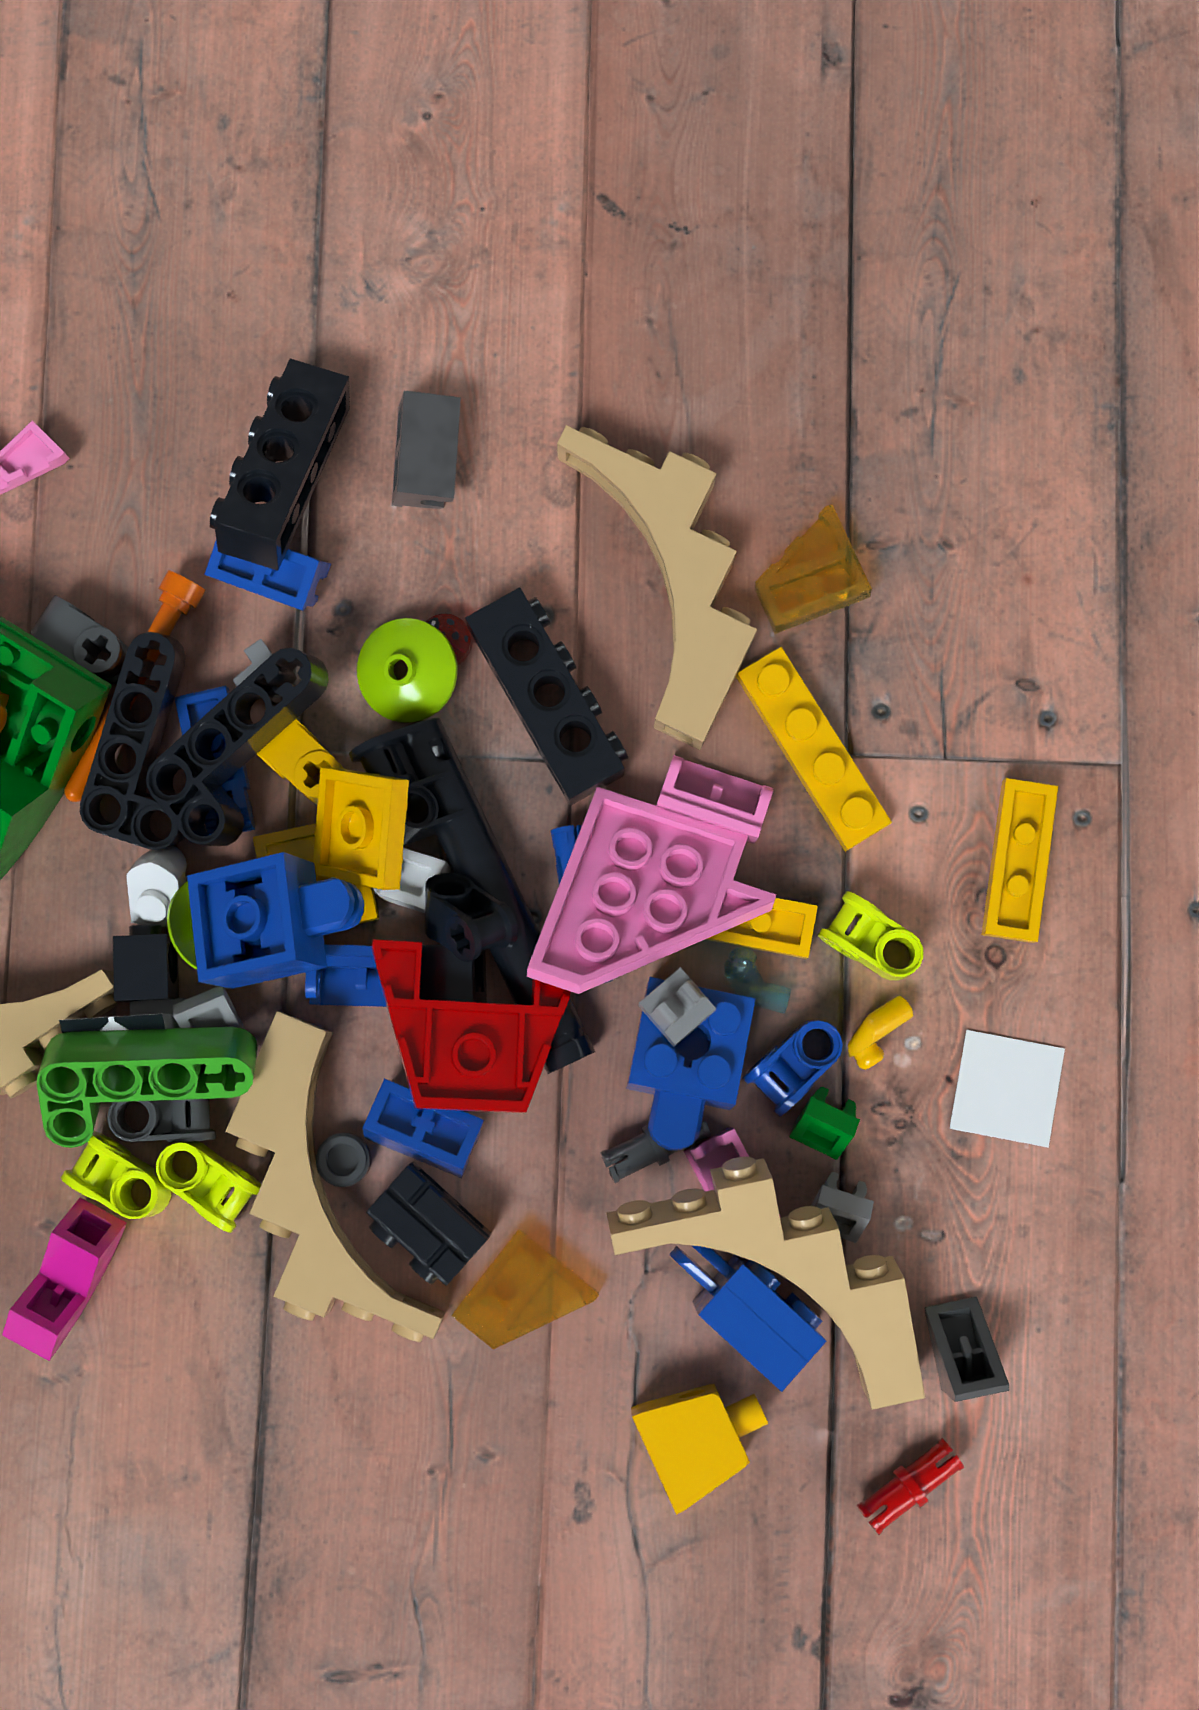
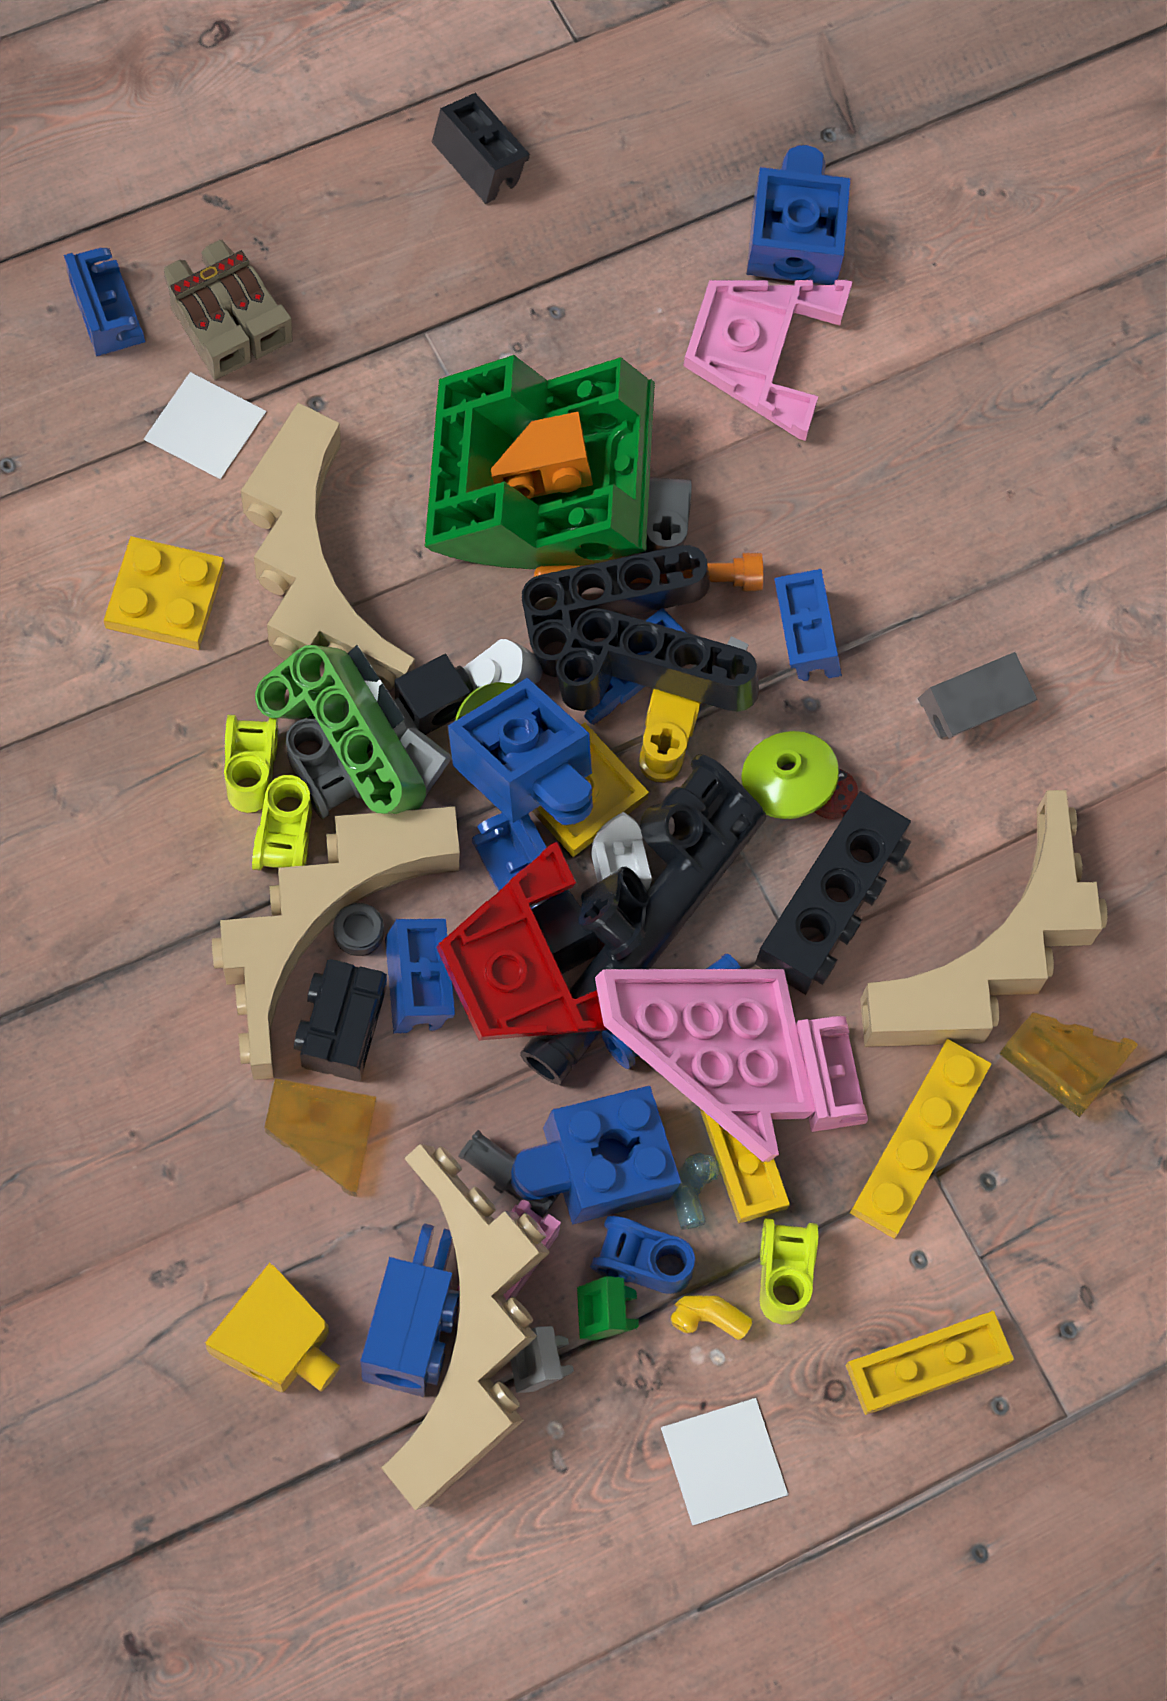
camera: 55 degrees right, 15 degrees down
(67, 1279) = (161, 762): dark pink brick -> none
(264, 531) = (898, 589): black brick -> none
(360, 827) = (643, 788): yellow plate -> none
(677, 1007) = (637, 1114): light grey tile -> none
(910, 1486) = (328, 1548): red pin -> none
(964, 1350) = (474, 1532): dark grey slope -> none

